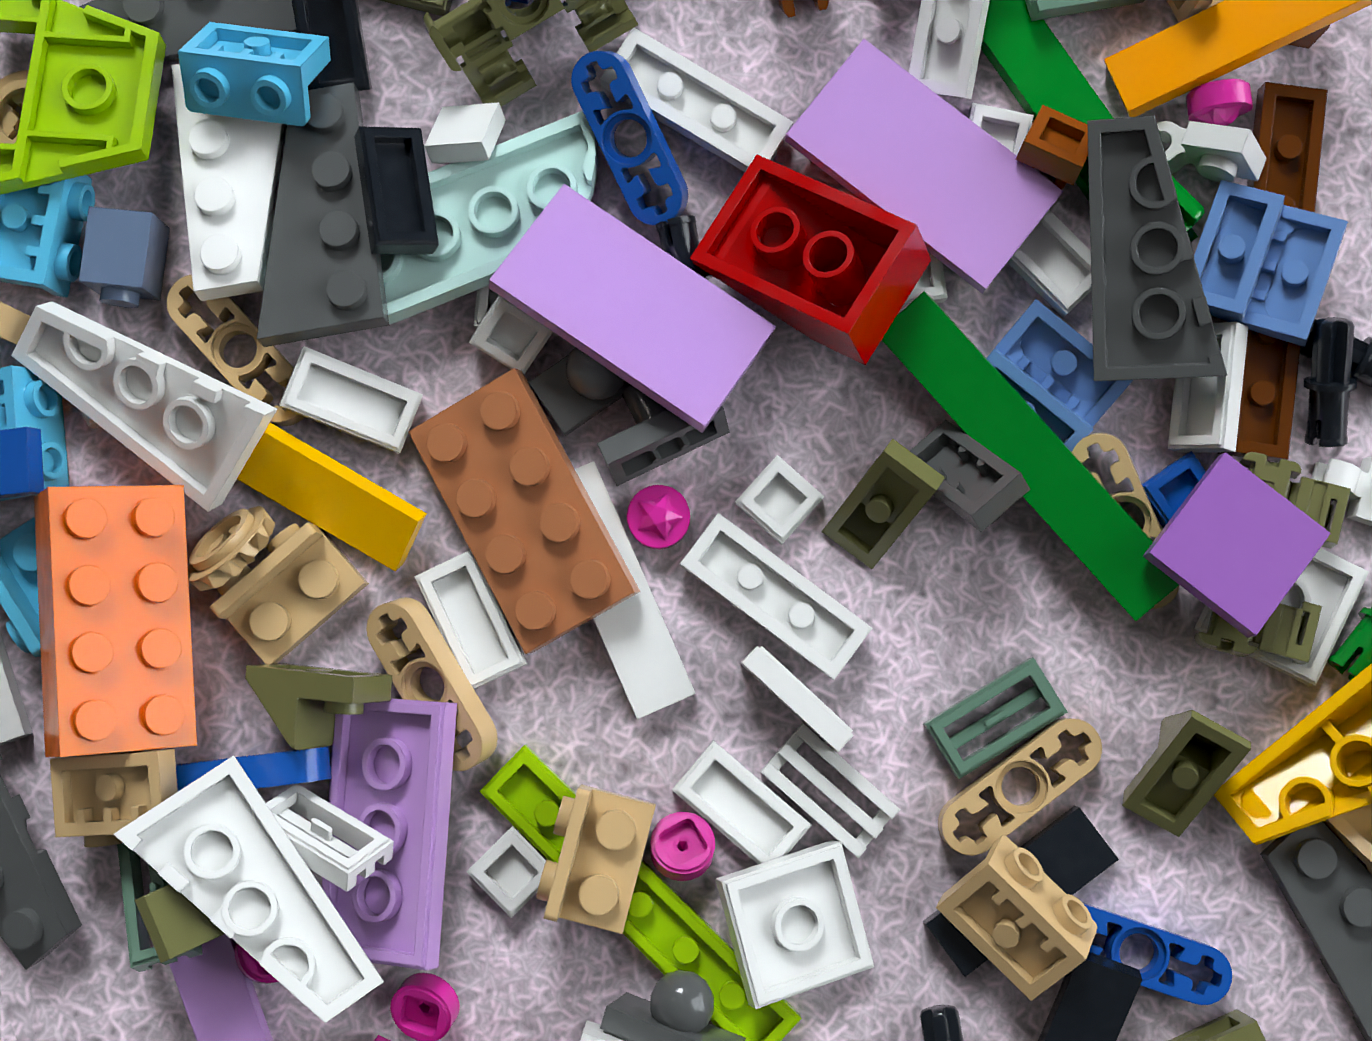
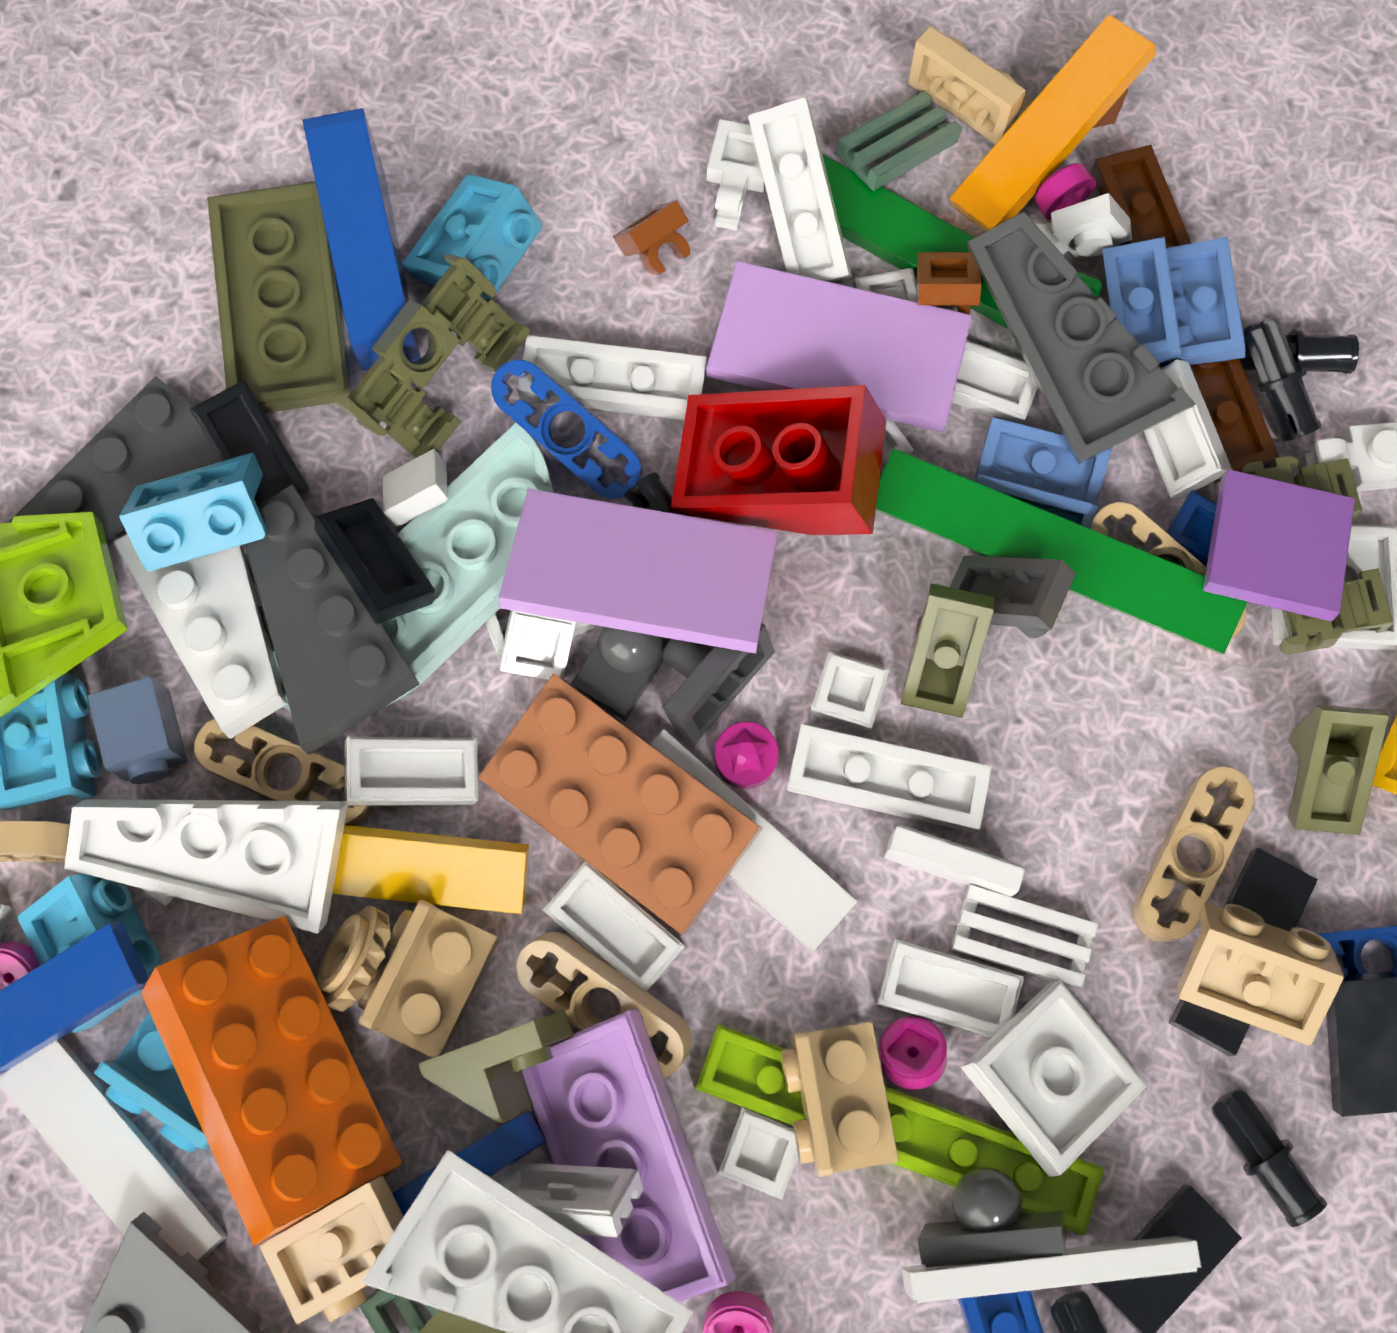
camera: 25 degrees left, 10 degrees down
(948, 745) = (1111, 846): sand green tile -> none

